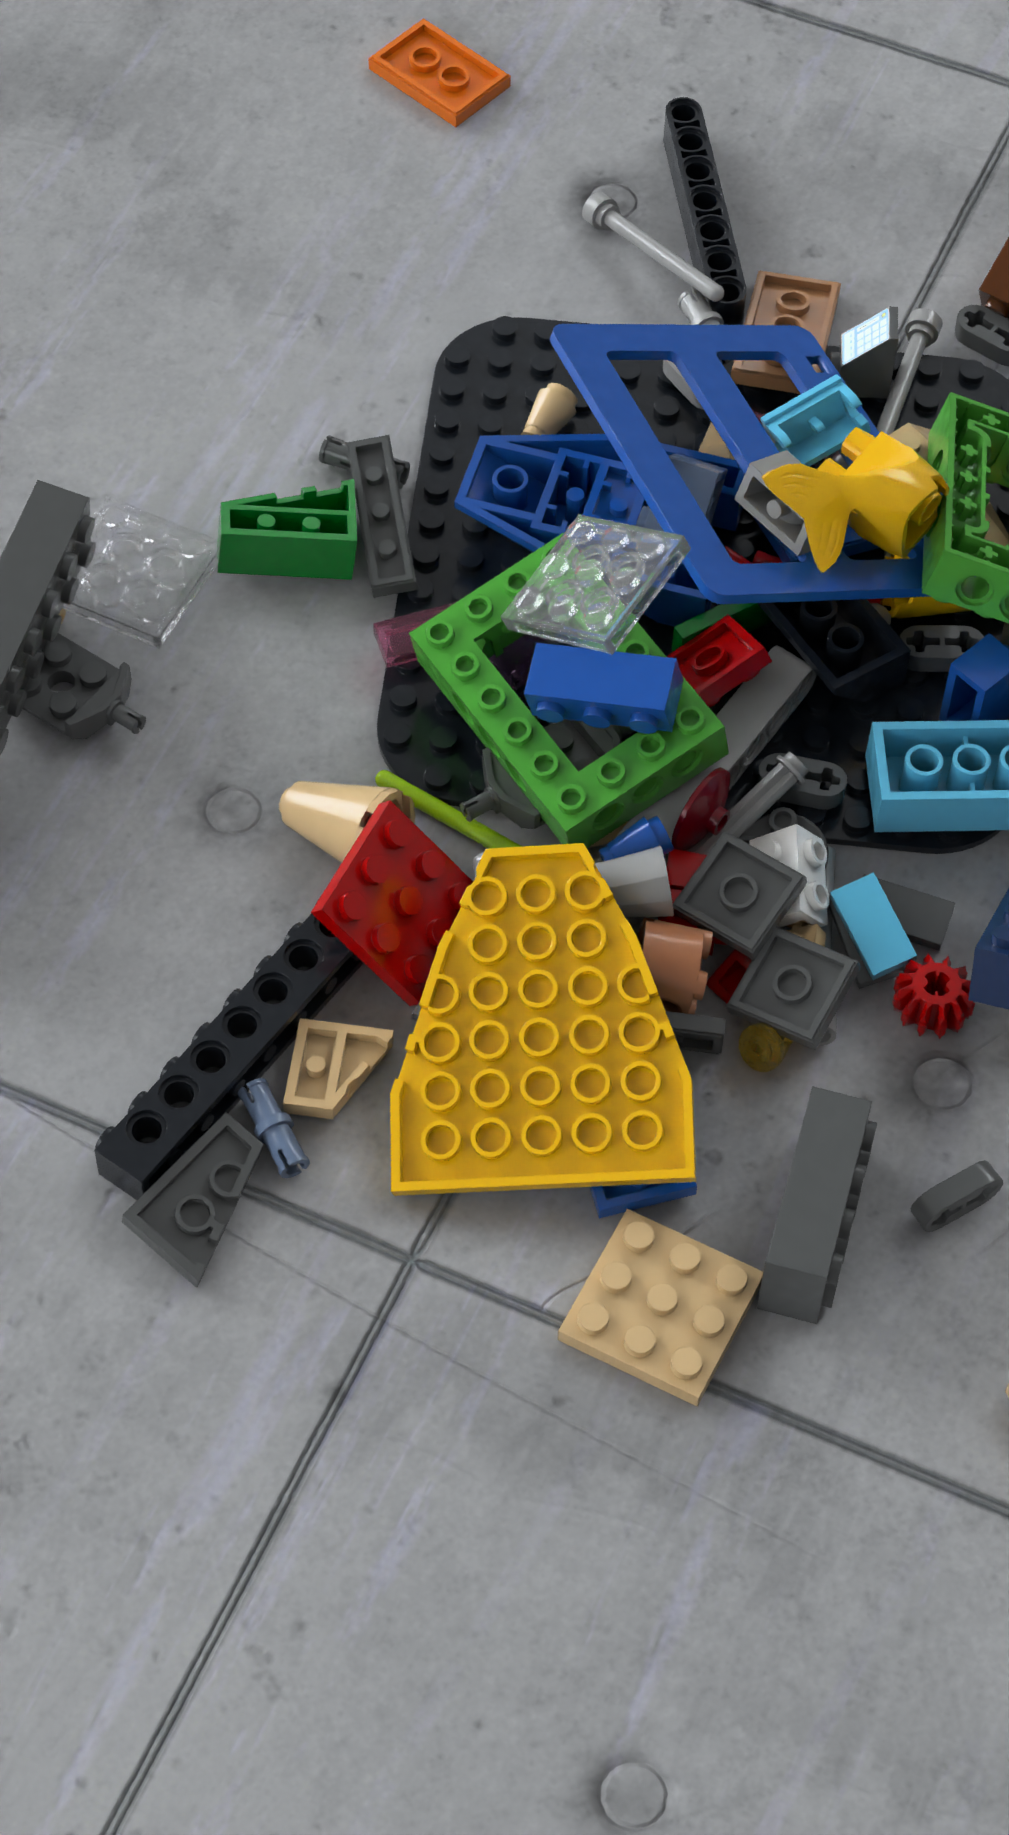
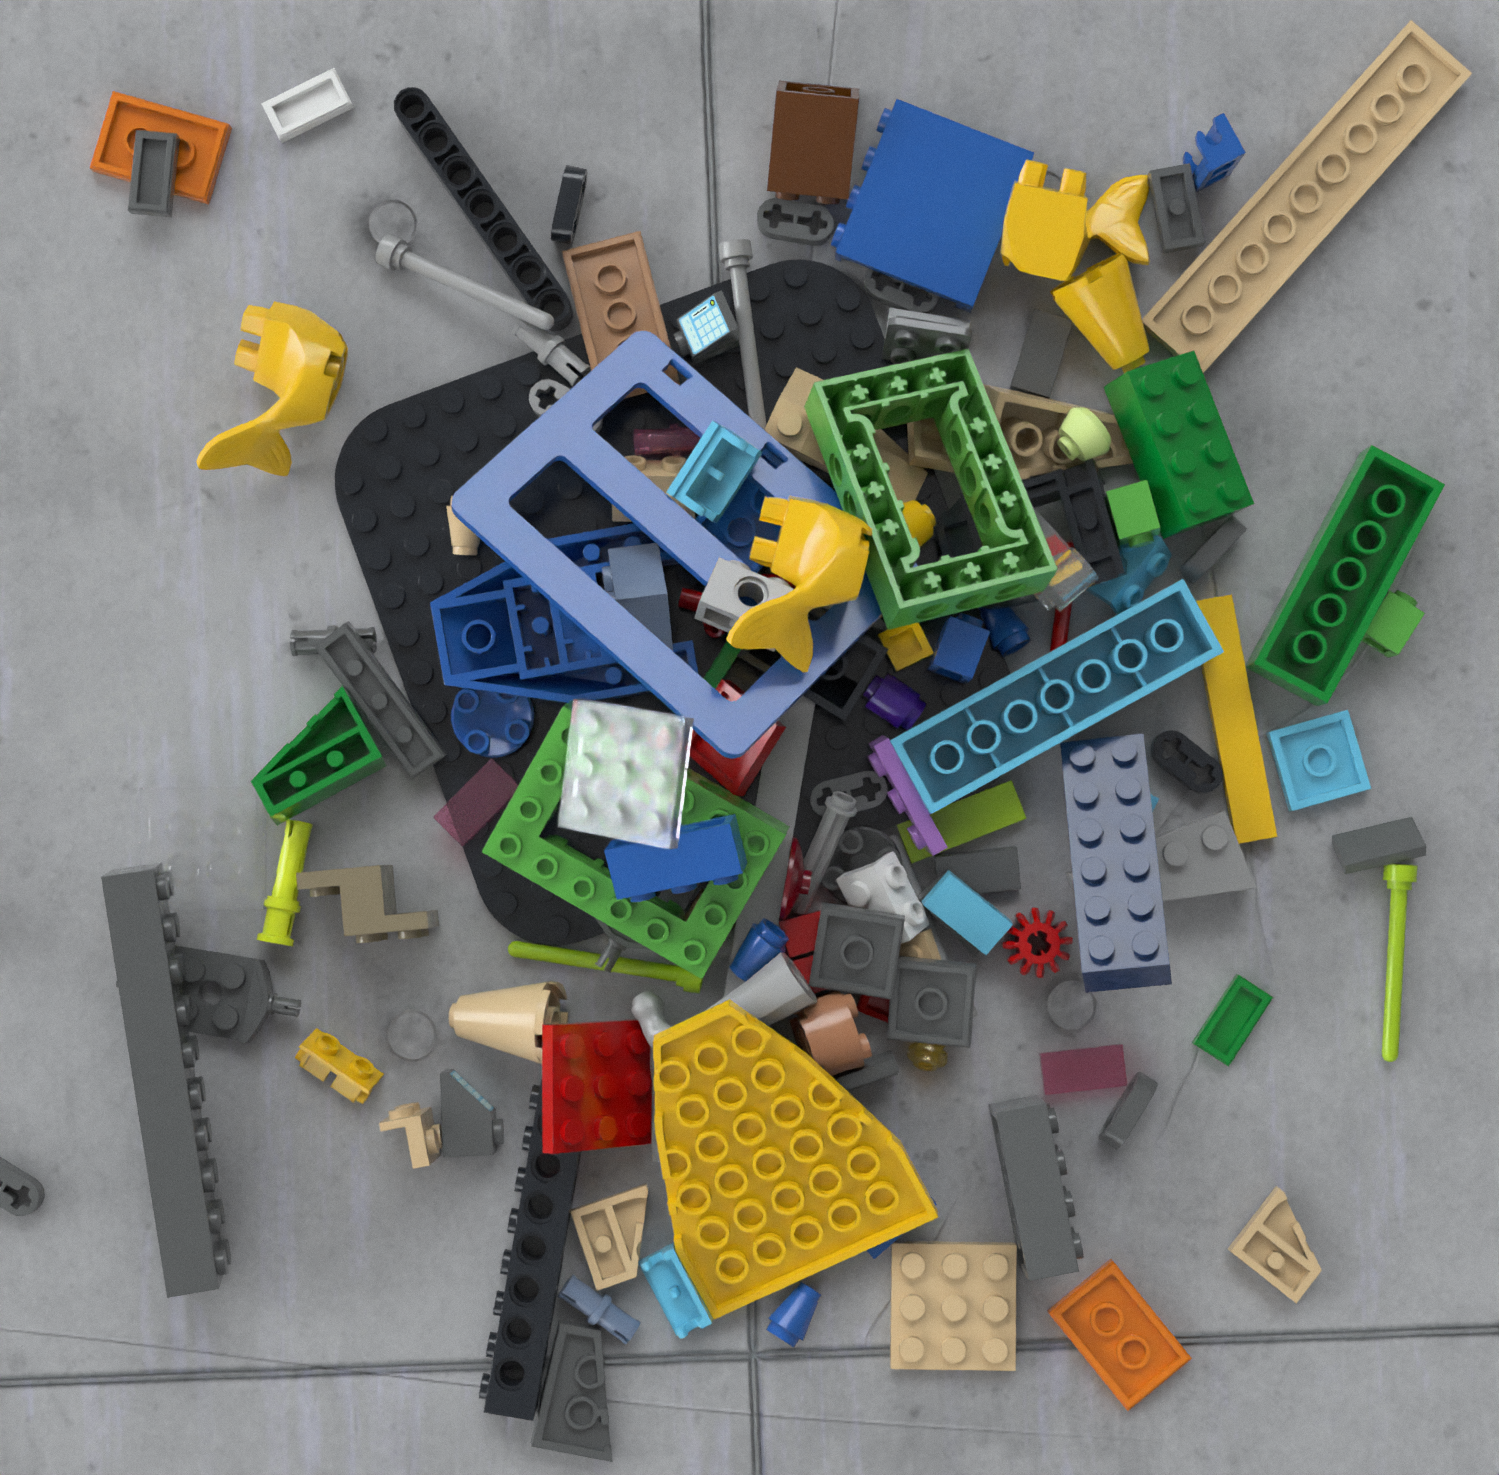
camera: 20 degrees left, 30 degrees up
(154, 808) = (355, 1074): none -> yellow hinge
(181, 638) = (283, 902): none -> neon yellow pin
(188, 865) = (422, 1134): none -> tan bracket
(242, 894) = (467, 1119): none -> dark grey slope
(268, 657) = (368, 902): none -> dark tan bracket
(365, 1147) = (675, 1291): none -> medium azure hinge
(422, 78) = (153, 173): none -> dark grey tile
(464, 242) = (297, 360): none -> yellow hips
(474, 561) = (491, 721): none -> blue dish
(479, 1229) = (794, 1315): none -> blue cone
(588, 93) = (307, 105): none -> white tile
(785, 239) = (569, 204): none -> black beam
(837, 1424) = (1119, 1334): none -> orange tile
(861, 794) = (905, 796): none -> medium lavender plate
(886, 705) = (894, 701): none -> dark purple brick
(909, 863) = (970, 818): none -> lime tile
(924, 1142) = (1083, 1069): none -> clear pink tile
(926, 678) = (905, 645): none -> yellow plate

